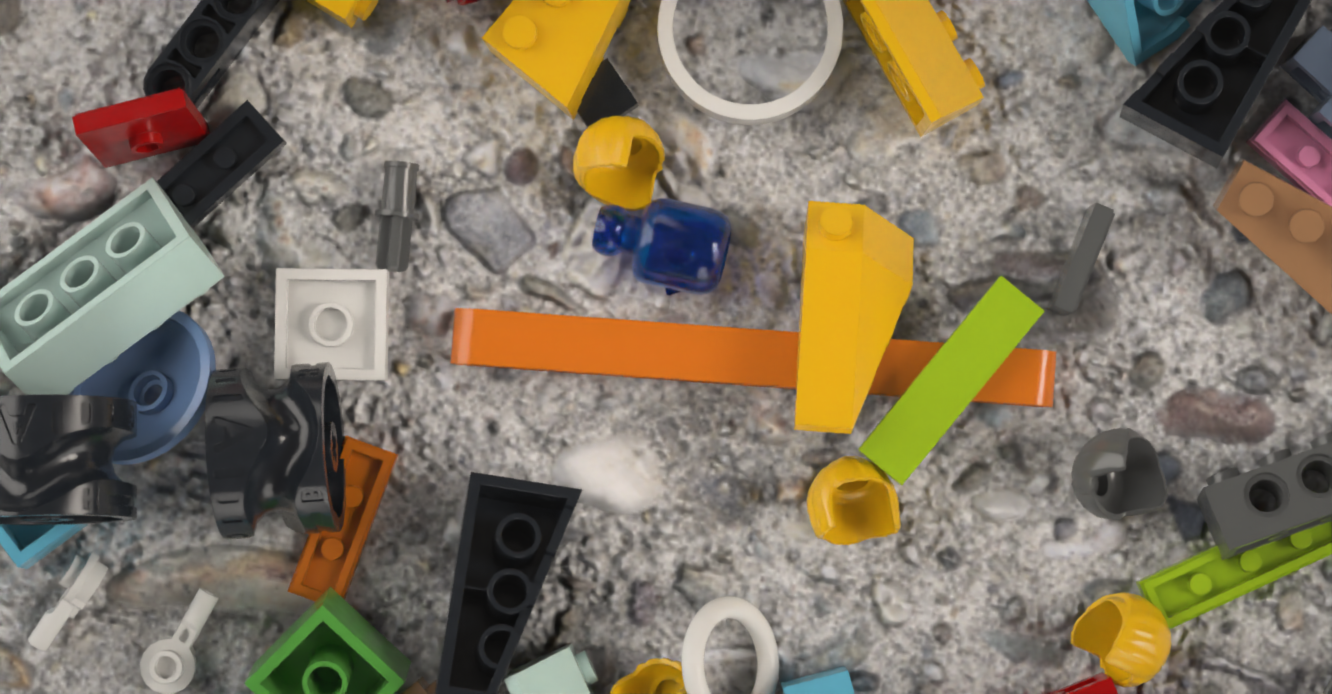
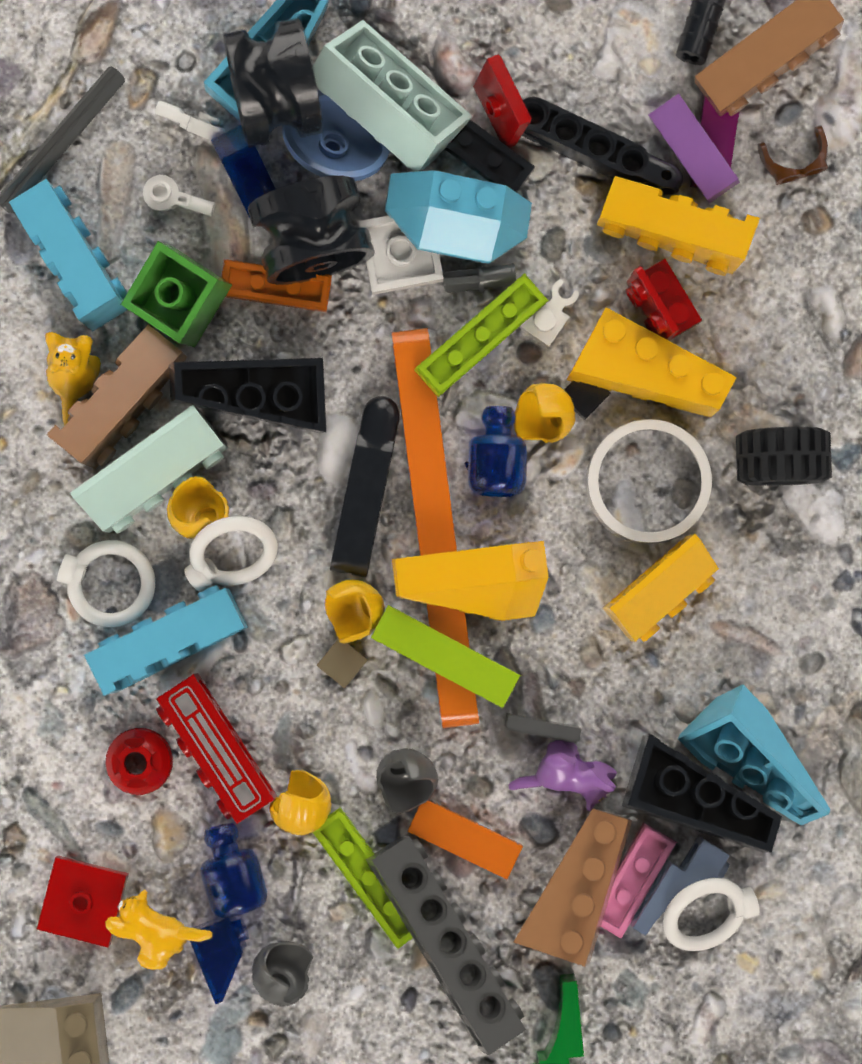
camera: 75 degrees right, 0 degrees up
(158, 533) = (243, 166): none -> clear blue slope
(296, 229) = (457, 214): none -> medium azure wedge
(477, 129) = (549, 319): none -> white plate
(484, 230) = (481, 335): none -> lime tile
(673, 447) = (366, 487): none -> black piece
(926, 536) = (342, 663): none -> dark tan tile
(1152, 239) = (565, 771): none -> medium lavender animal
(1220, 406) = (465, 838): none -> orange tile

